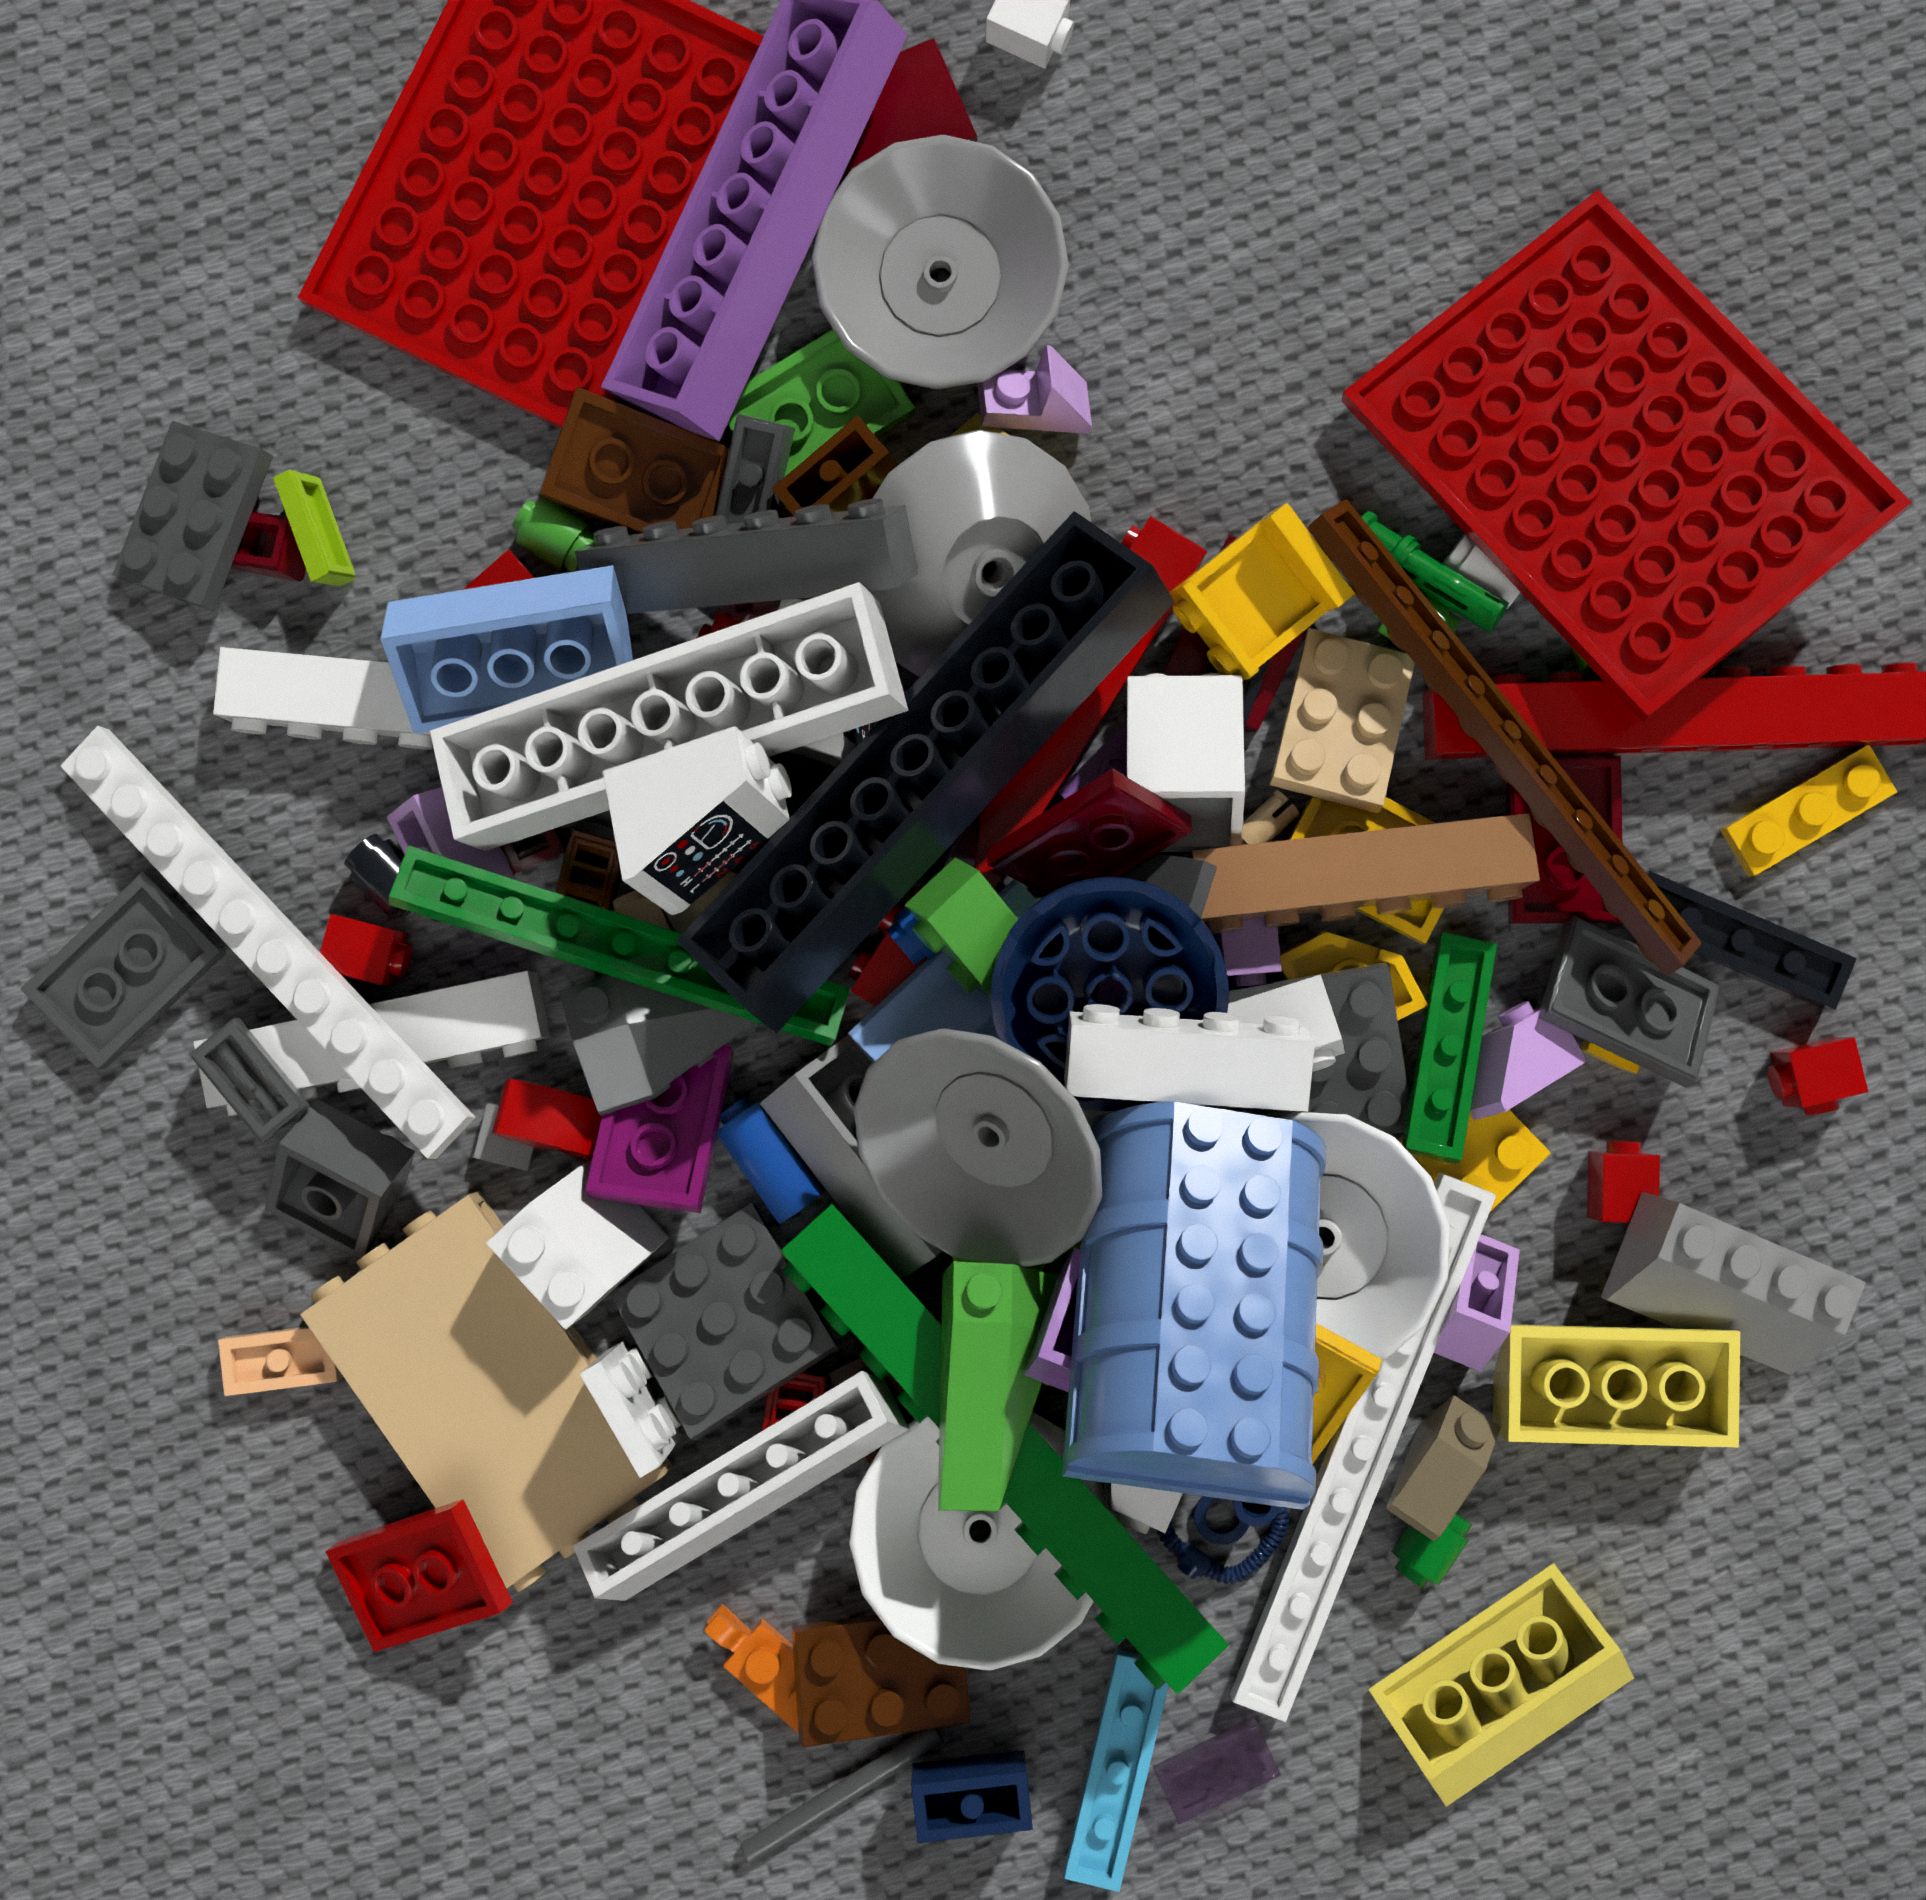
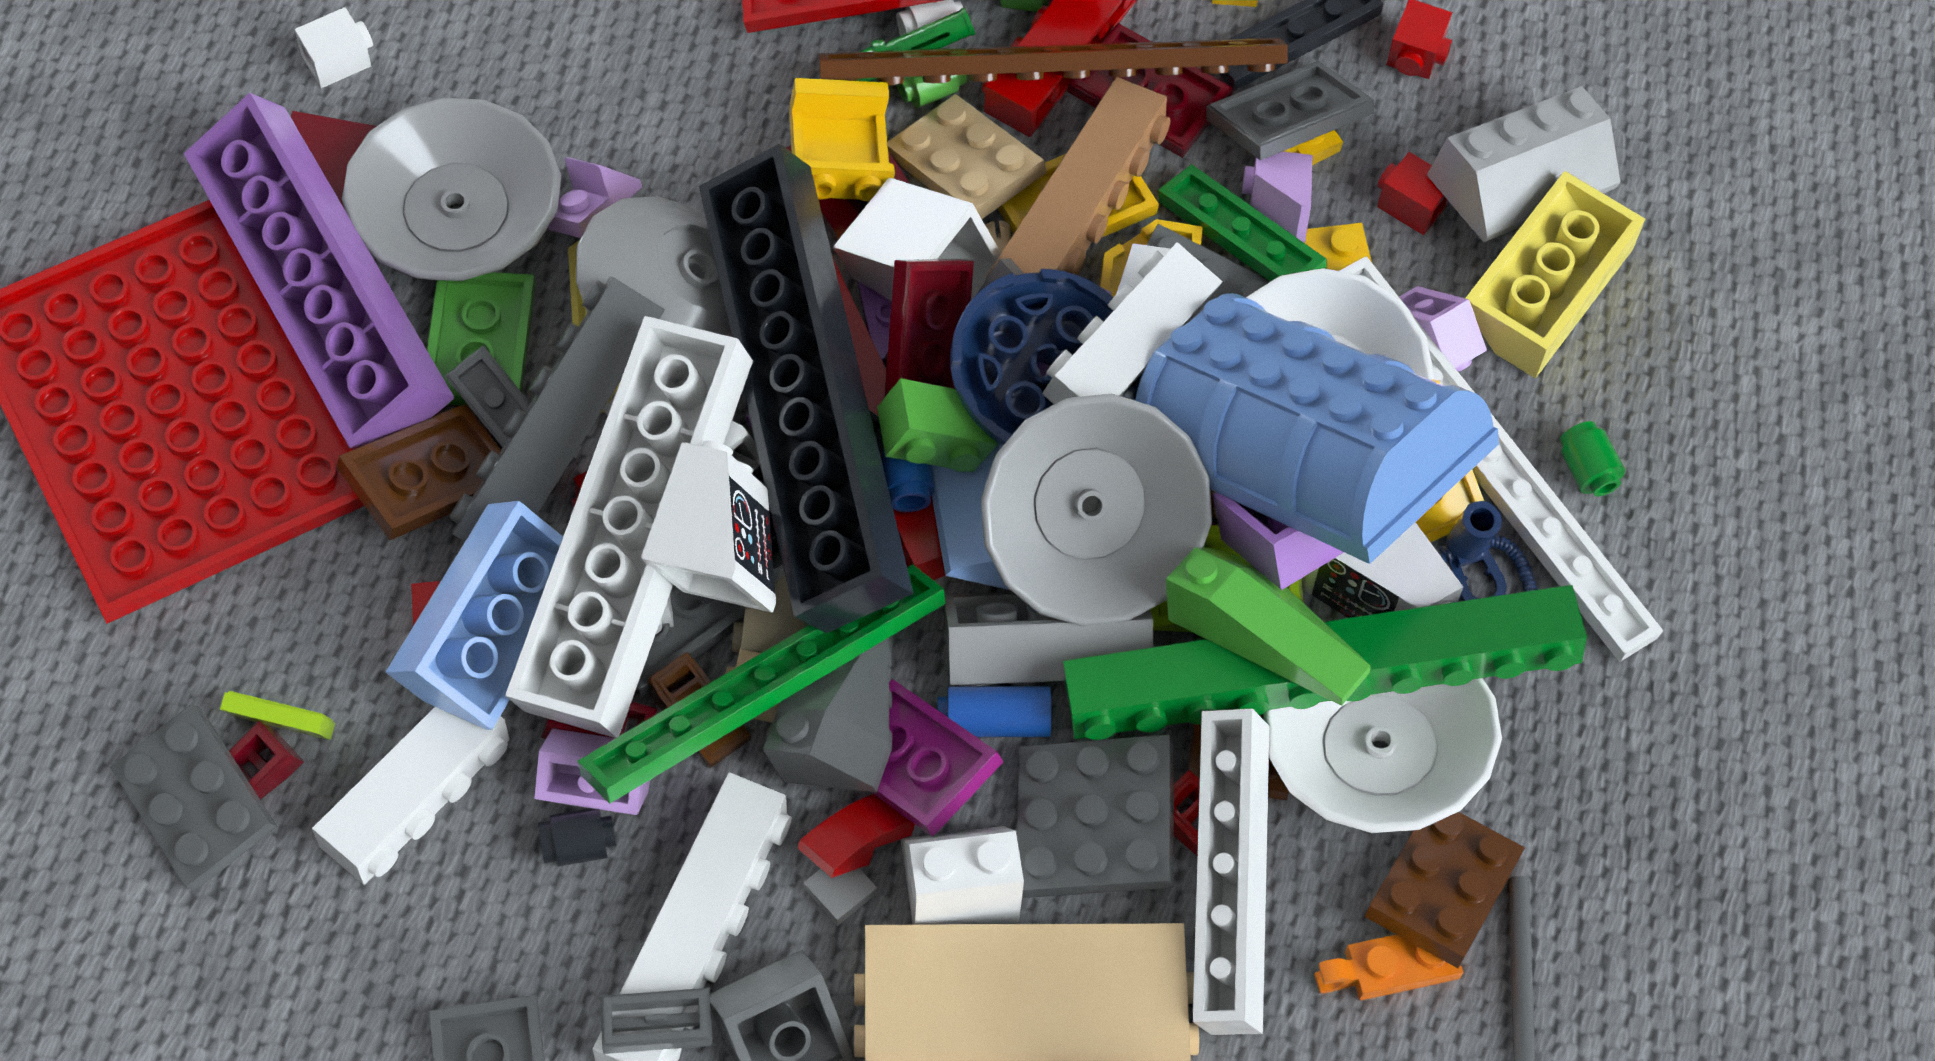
camera: 55 degrees left, 25 degrees down
(268, 943) = (555, 942): white plate -> none
(366, 950) = (619, 890): red brick -> none
(552, 533) = (422, 557): bright green brick -> none
(632, 1407) = (1115, 889): white plate -> none
(838, 472) = (538, 326): reddish brown brick -> none
(971, 1796) = (1581, 870): dark blue brick -> none
(1115, 1776) = (1628, 769): medium azure plate -> none
(1216, 1770) = (1671, 703): clear purple plate -> none
(1442, 1466) = (1536, 405): dark tan slope -> none
(1501, 1683) = (1725, 478): light yellow slope -> none

